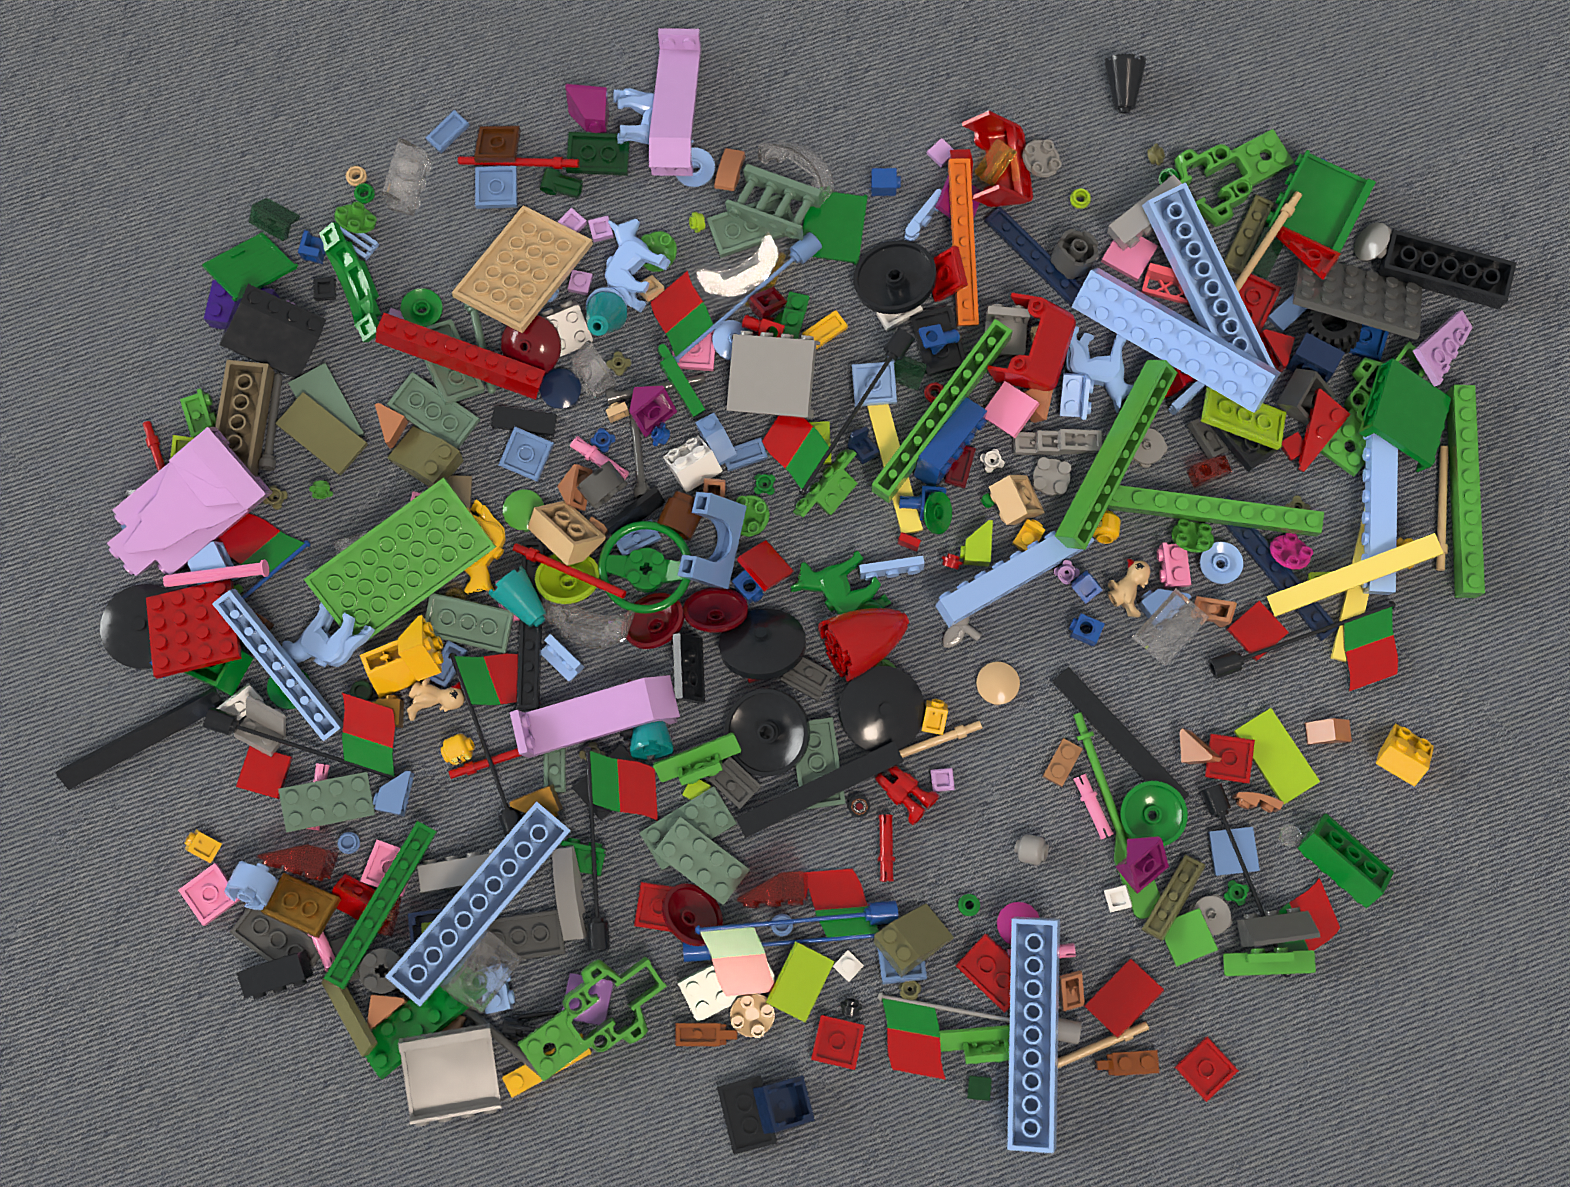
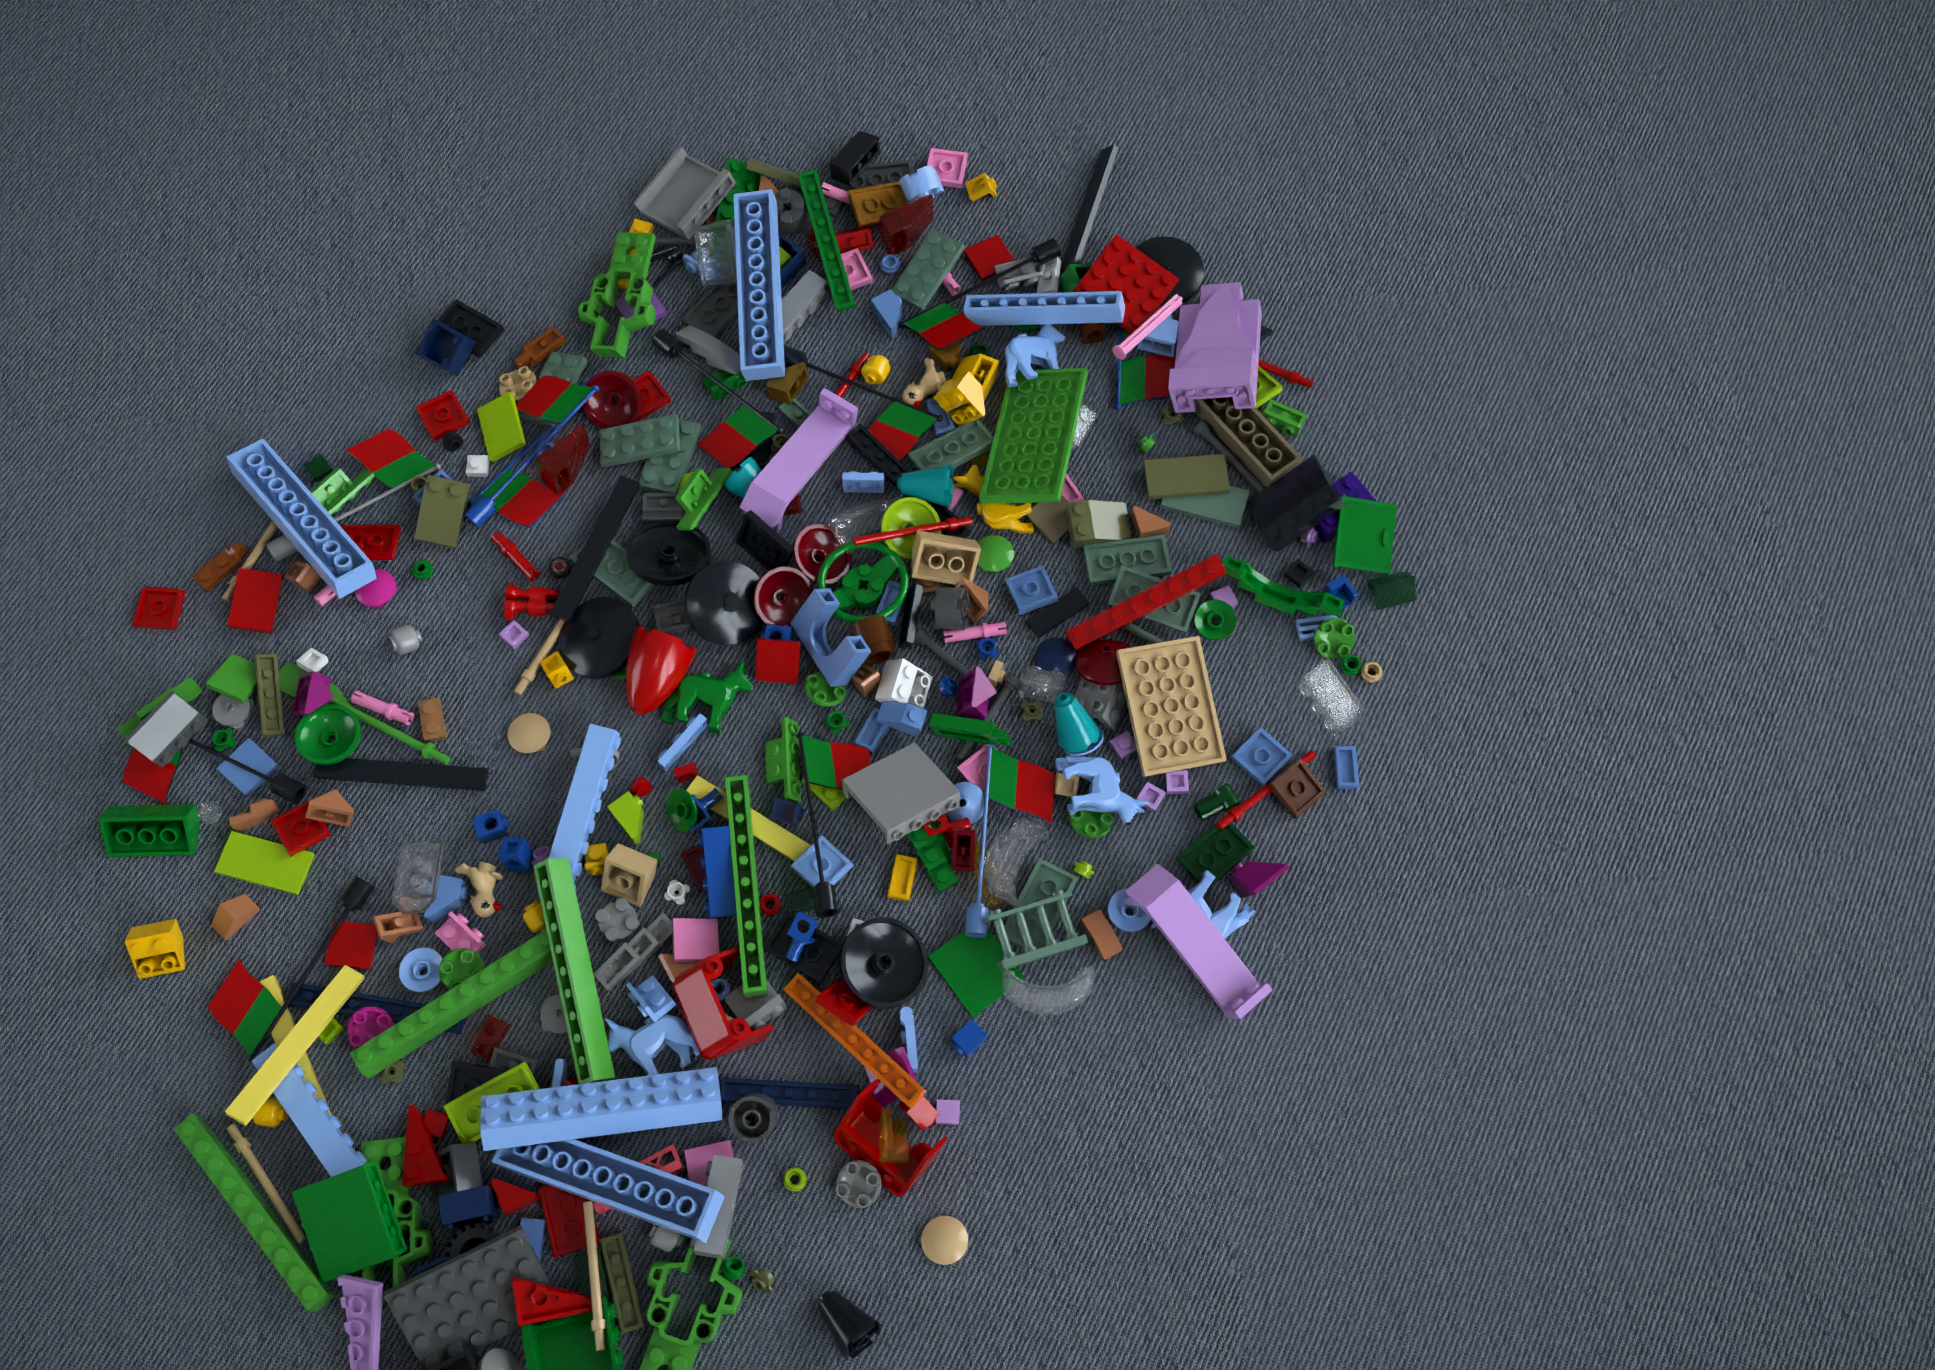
camera: 135 degrees right, 10 degrees down
(1016, 80) = (944, 1240): none -> tan dish

